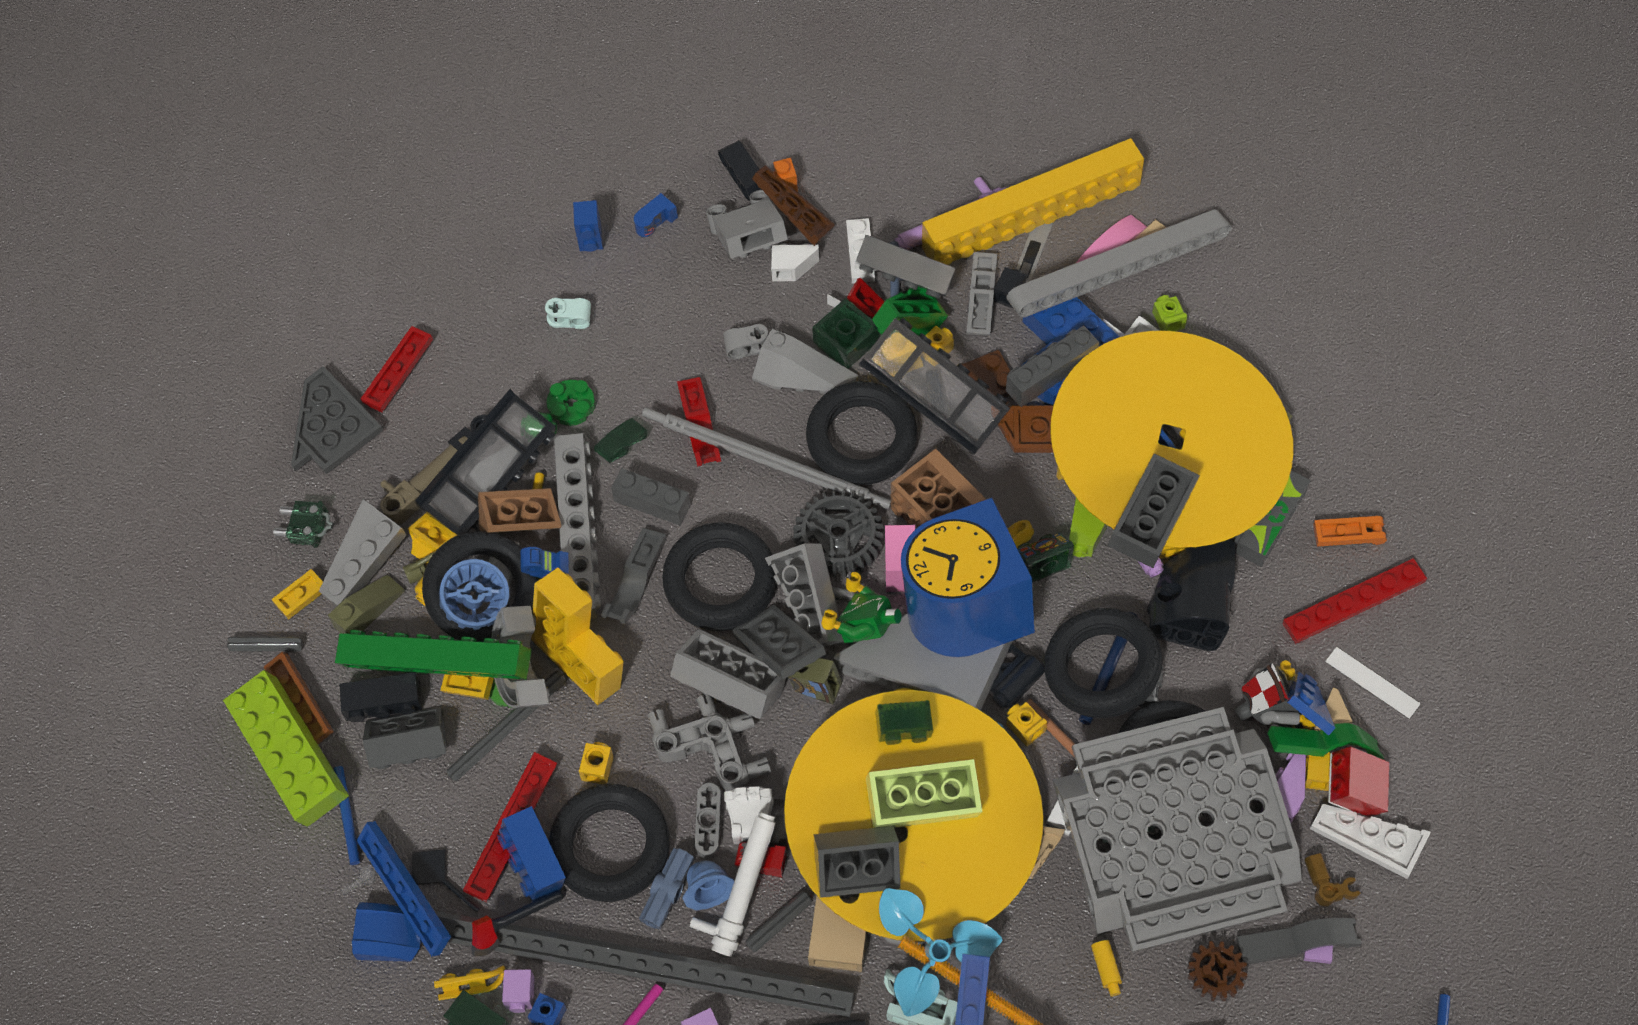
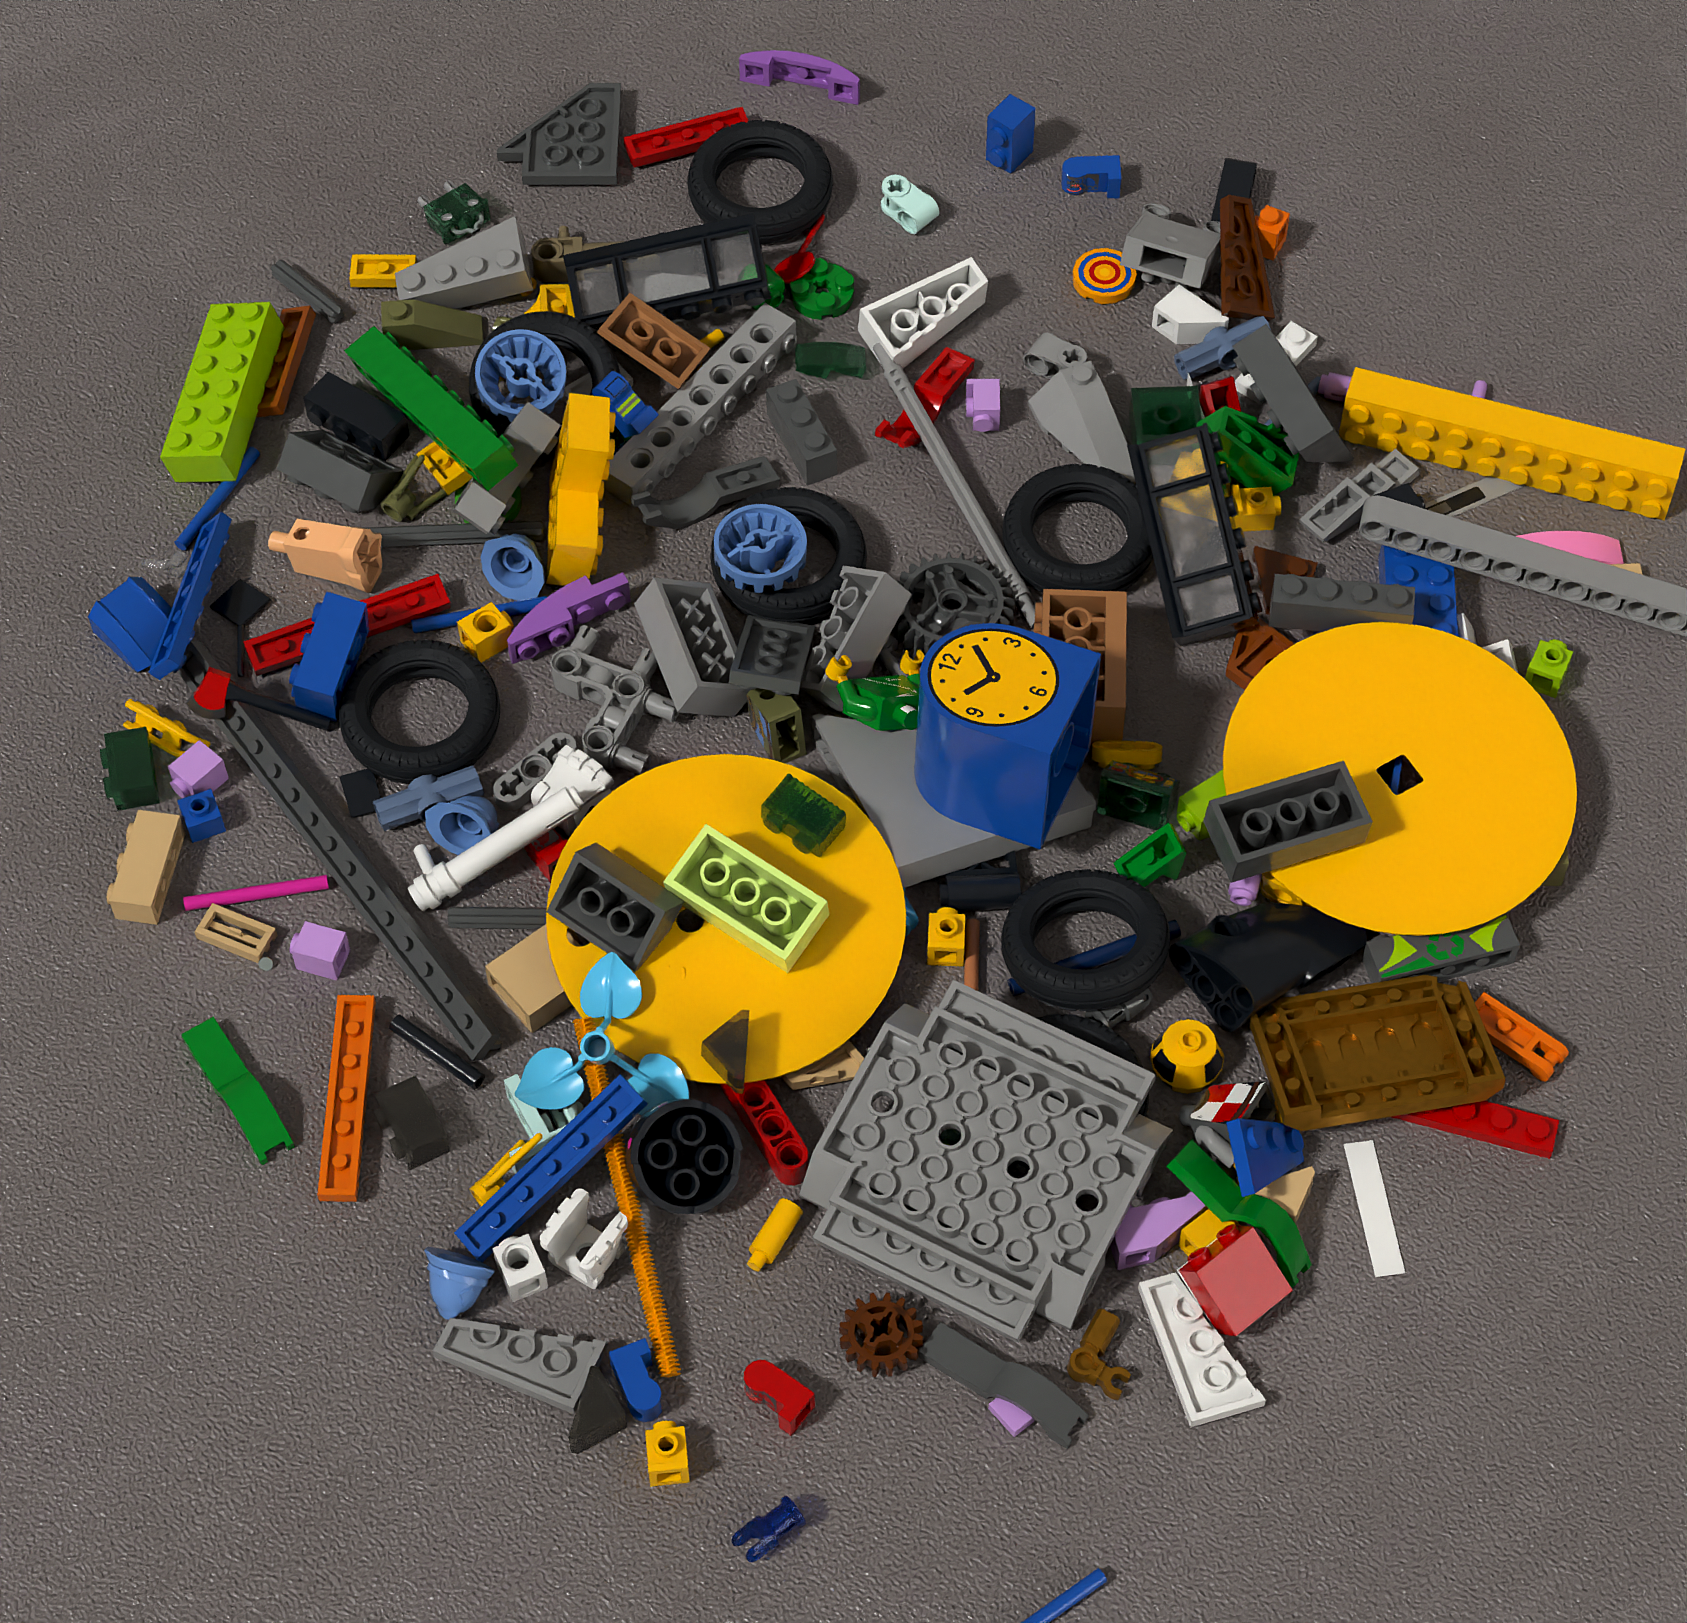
camera: 40 degrees right, 5 degrees down
(422, 275) = (800, 68): none -> medium lavender slope
(456, 792) = (332, 552): none -> light nougat piece
(458, 330) = (770, 140): none -> black tyre
(462, 728) = (400, 500): none -> olive plant
(544, 397) = (801, 262): none -> red piece
(573, 710) = (513, 566): none -> medium blue piece
(577, 756) = (451, 619): none -> blue bar
(621, 918) = (360, 791): none -> black piece
(628, 720) = (554, 618): none -> medium lavender slope
(646, 374) = (923, 312): none -> white wedge
(712, 570) = (754, 540): none -> medium blue gear
(718, 271) = (1101, 276): none -> light orange tile
(733, 399) = (983, 403): none -> lavender brick
(827, 264) = (1215, 349): none -> sand blue piece
(997, 888) = (727, 1050): none -> clear smoke slope
(1028, 968) = (684, 1156): none -> black cylinder
(1040, 902) = (771, 1117): none -> red beam
(1087, 587) = (1155, 856): none -> green slope
(1209, 681) = (1187, 1056): none -> yellow cone
(1301, 598) = (1375, 1052): none -> pearl gold slope

